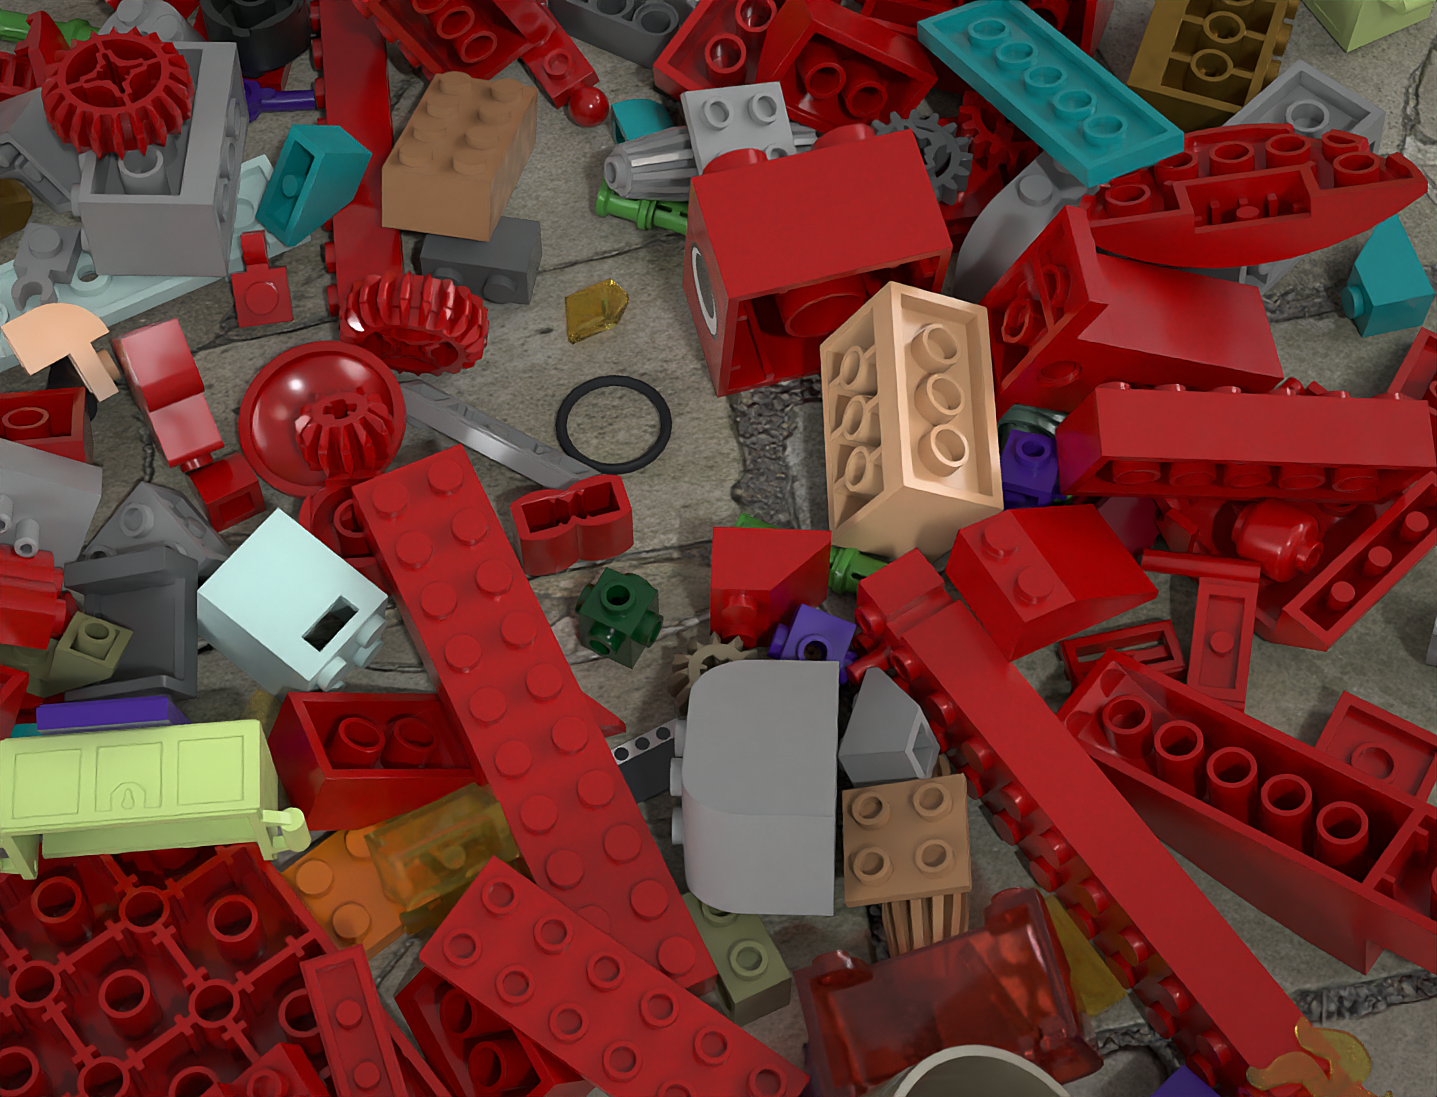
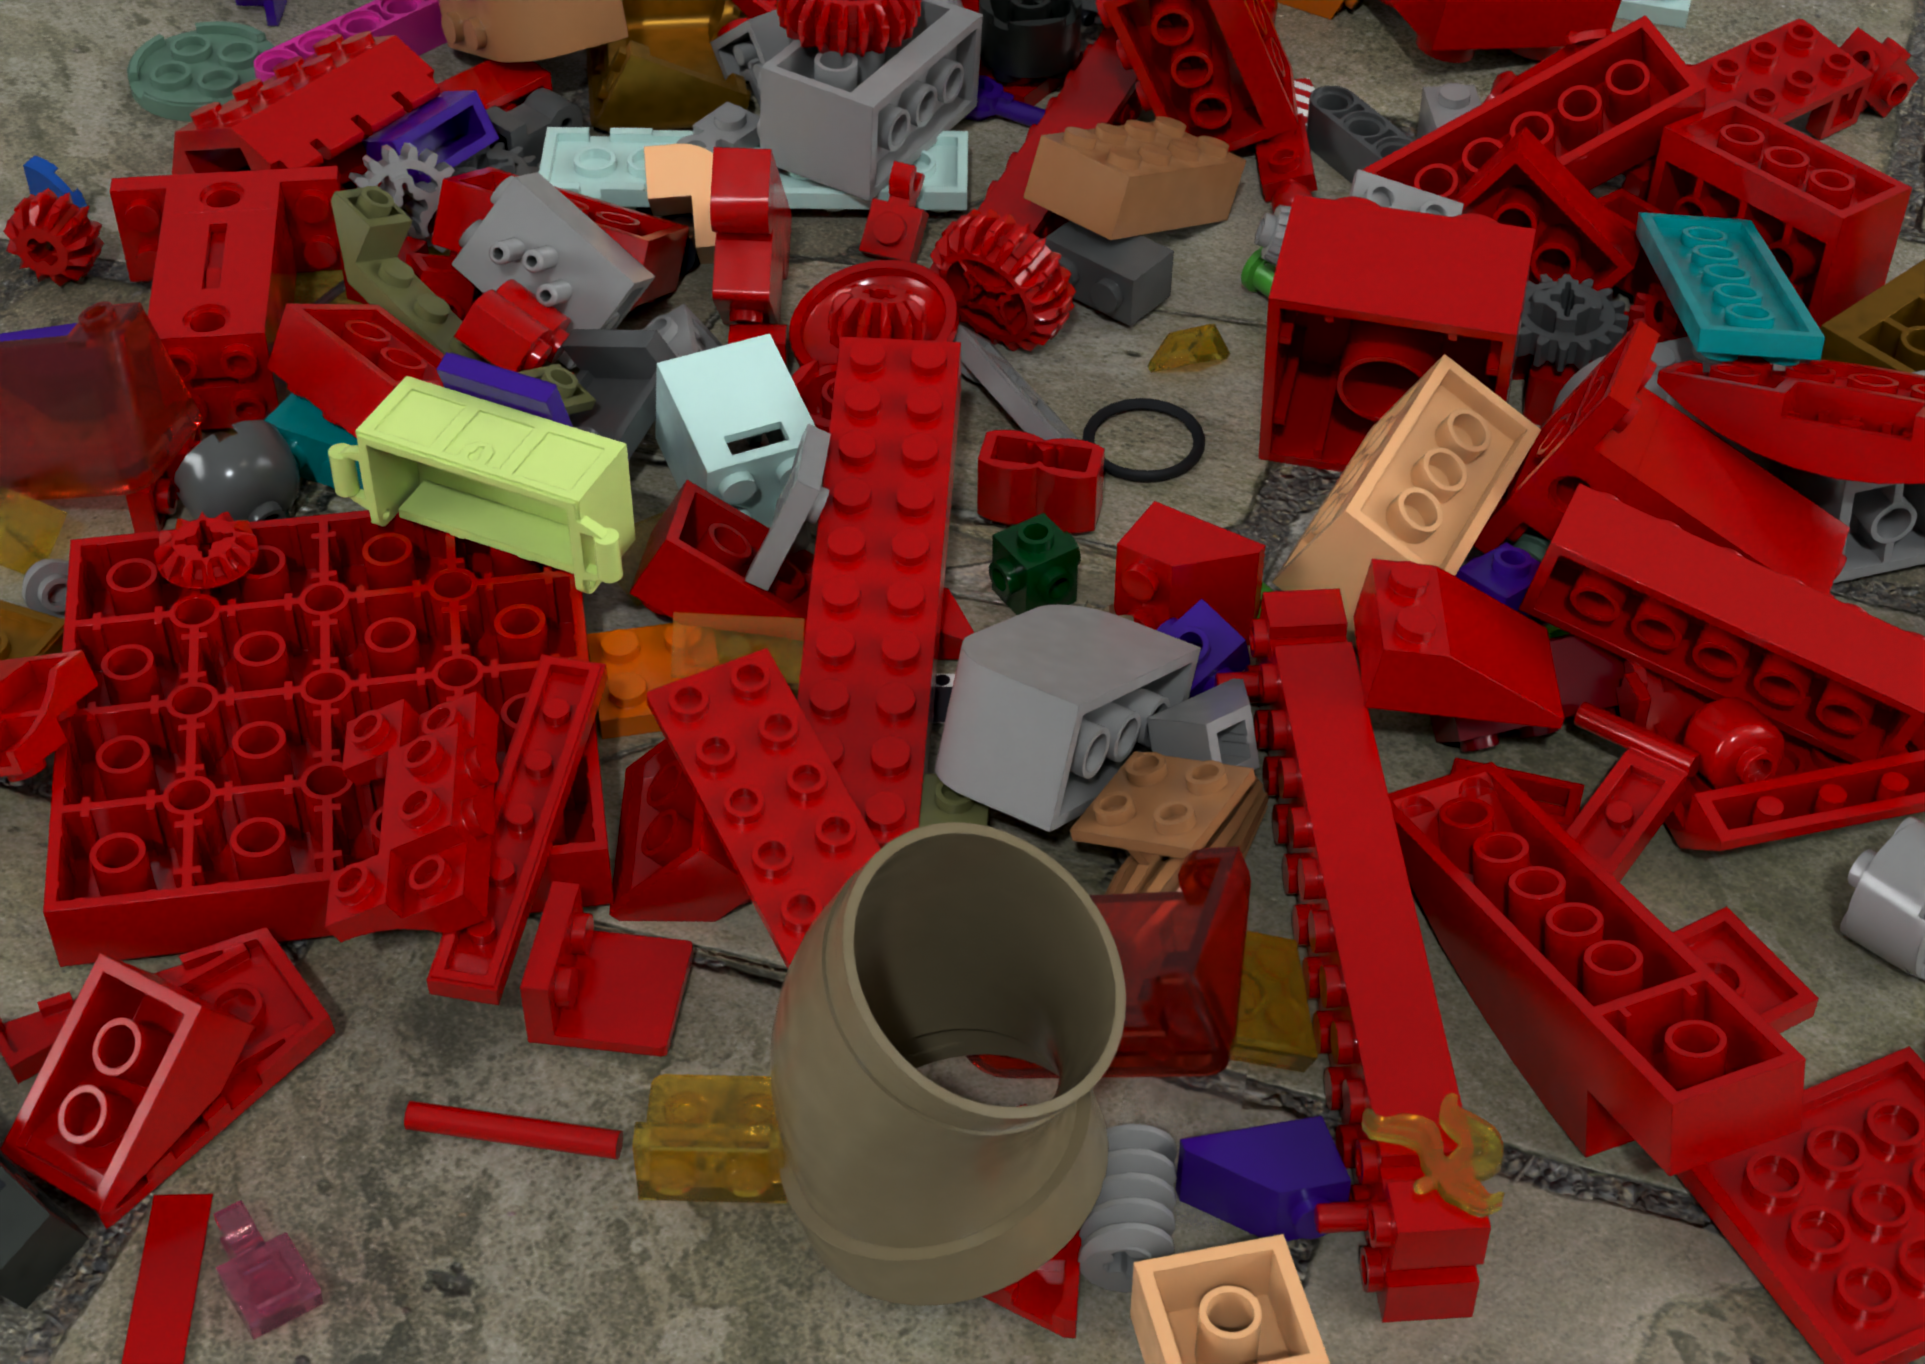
camera: 30 degrees right, 15 degrees down
(311, 181) = (986, 148): teal slope -> none
(418, 682) = (794, 510): none -> light grey plate

